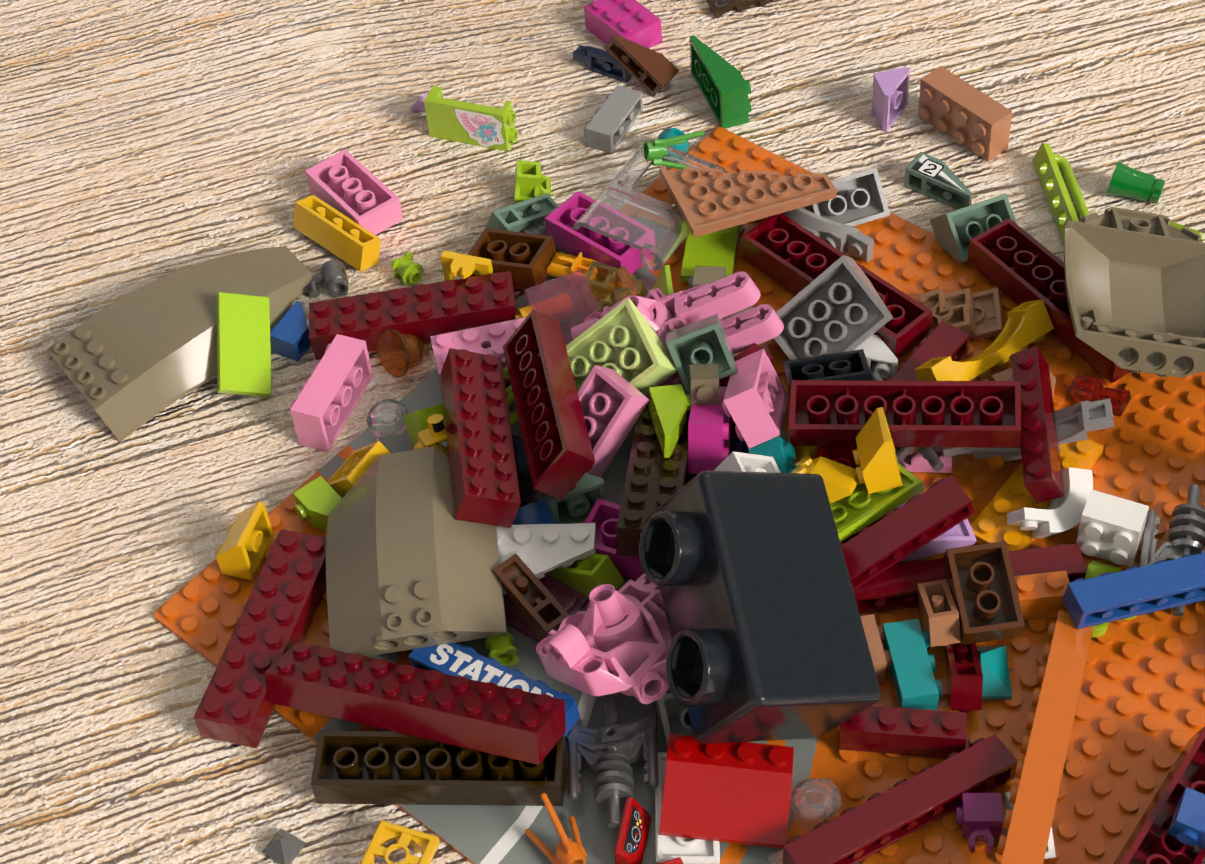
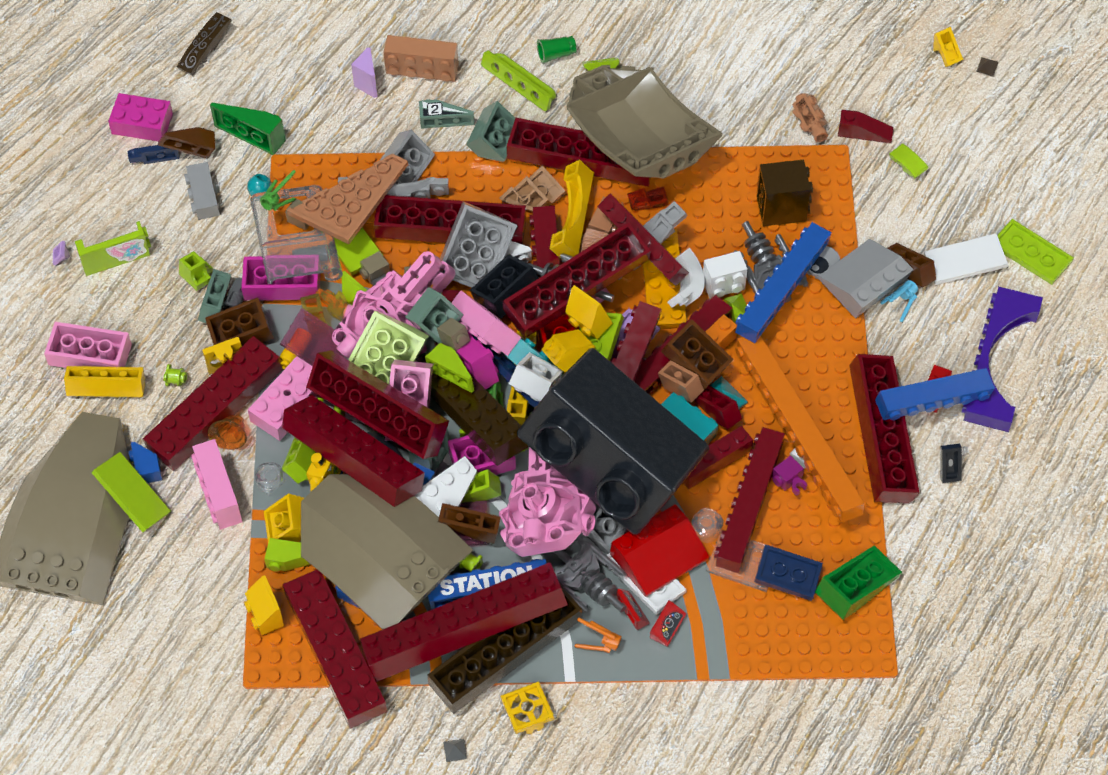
camera: 45 degrees left, 10 degrees up
(335, 279) = (132, 412): flat silver piece -> none
(565, 264) = (282, 309): light orange arm -> none

